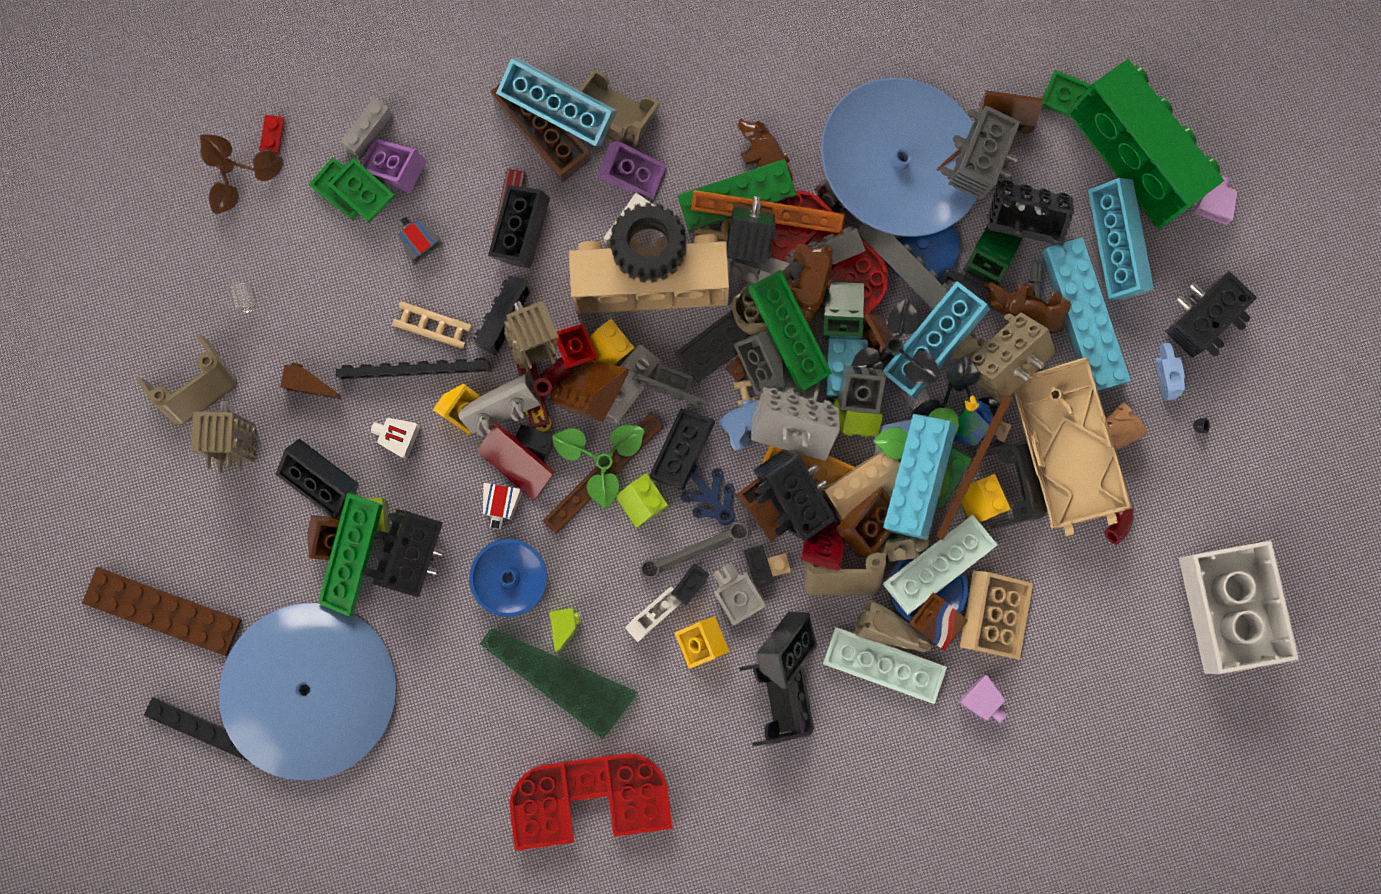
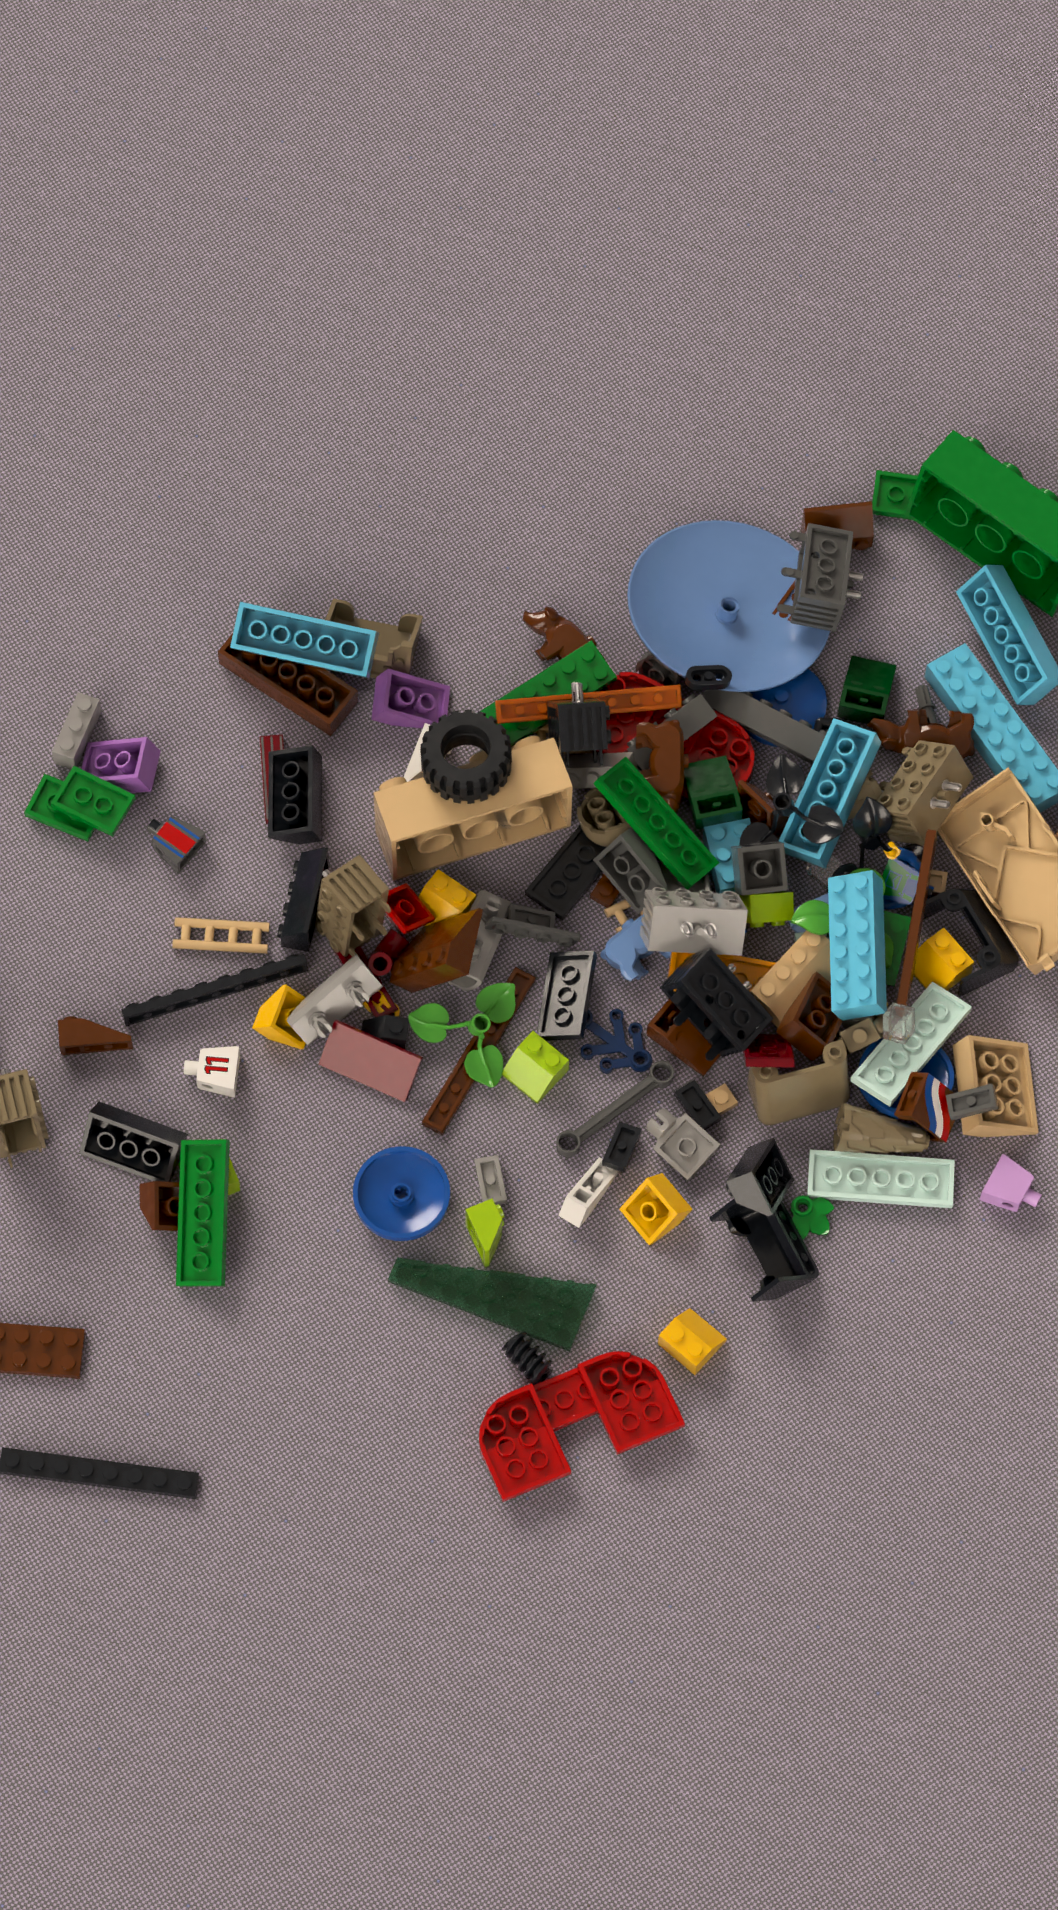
camera: 20 degrees left, 15 degrees down
(347, 699) = (200, 1435): medium blue dish -> none
(406, 552) = (273, 1190): black piece -> none
(500, 503) = (364, 1113): torso -> none
(568, 738) = (527, 1358): none -> black piece
(581, 584) = (490, 1179): none -> light grey plate
(699, 757) = (691, 1340): none -> yellow slope
(821, 683) = (814, 1218): none -> green plate
(866, 217) = (707, 677): none -> black plate
(934, 550) = (898, 1023): none -> clear brick
(973, 631) = (972, 1102): none -> dark grey plate
(1030, 212) = (896, 630): black piece -> none

